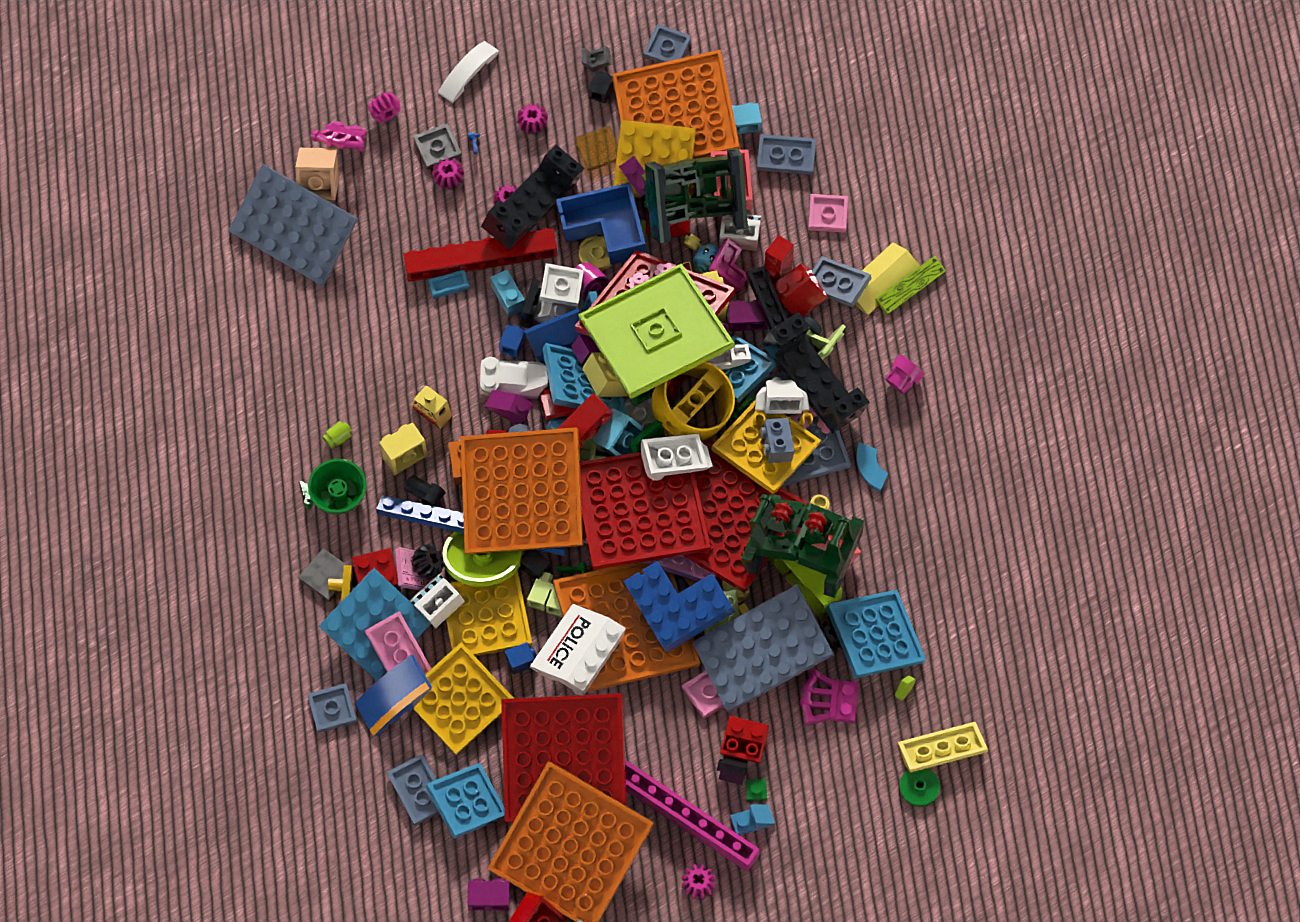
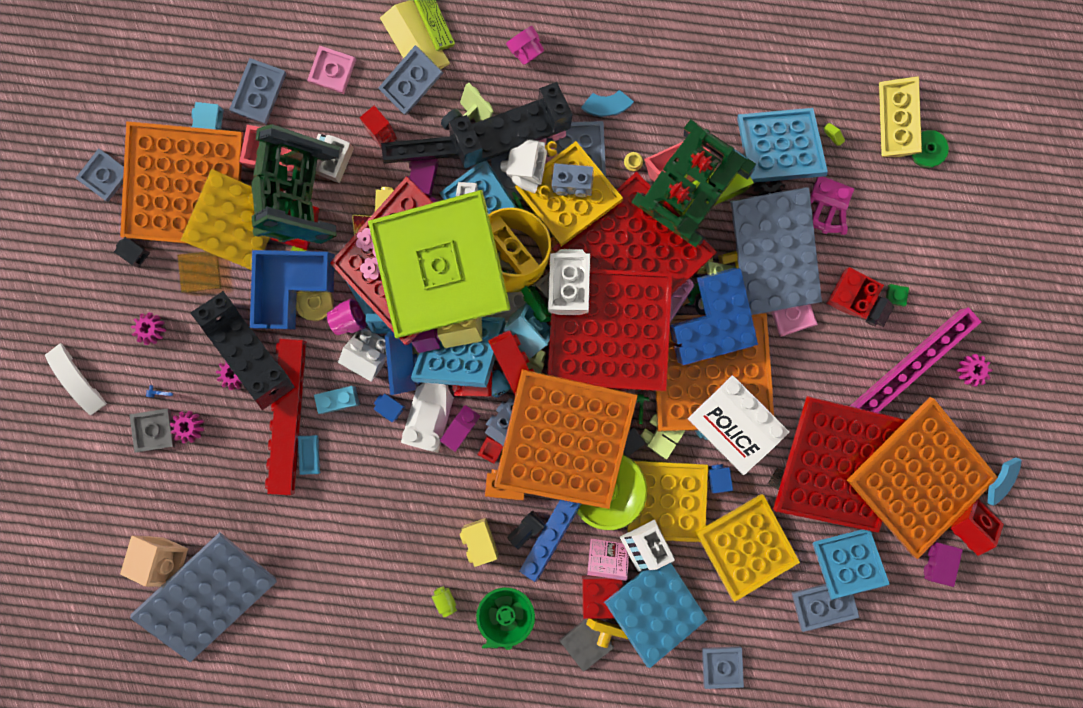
camera: 80 degrees left, 20 degrees up
(341, 136) = (110, 524): dark pink plate -> none
(384, 107) = (94, 474): dark pink gear -> none
(393, 695) = (737, 610): blue slope -> none
(395, 643) = (690, 594): bright pink tile -> none
(428, 561) = (605, 545): black gear -> none
(430, 404) = (441, 502): light yellow torso -> none
(530, 304) = (363, 383): black plate -> none
(561, 285) = (350, 346): white plate -> none
(596, 59) = (98, 248): flat silver bracket -> none
(633, 170) = (246, 242): magenta brick -> none
(692, 242) = (329, 206): light yellow plate -> none
(705, 257) = (351, 197): dark azure head -> none
(725, 264) = (363, 181): dark pink plate -> none
(753, 819) = (924, 306): dark azure slope -> none
(800, 290) = (413, 117): red slope -> none

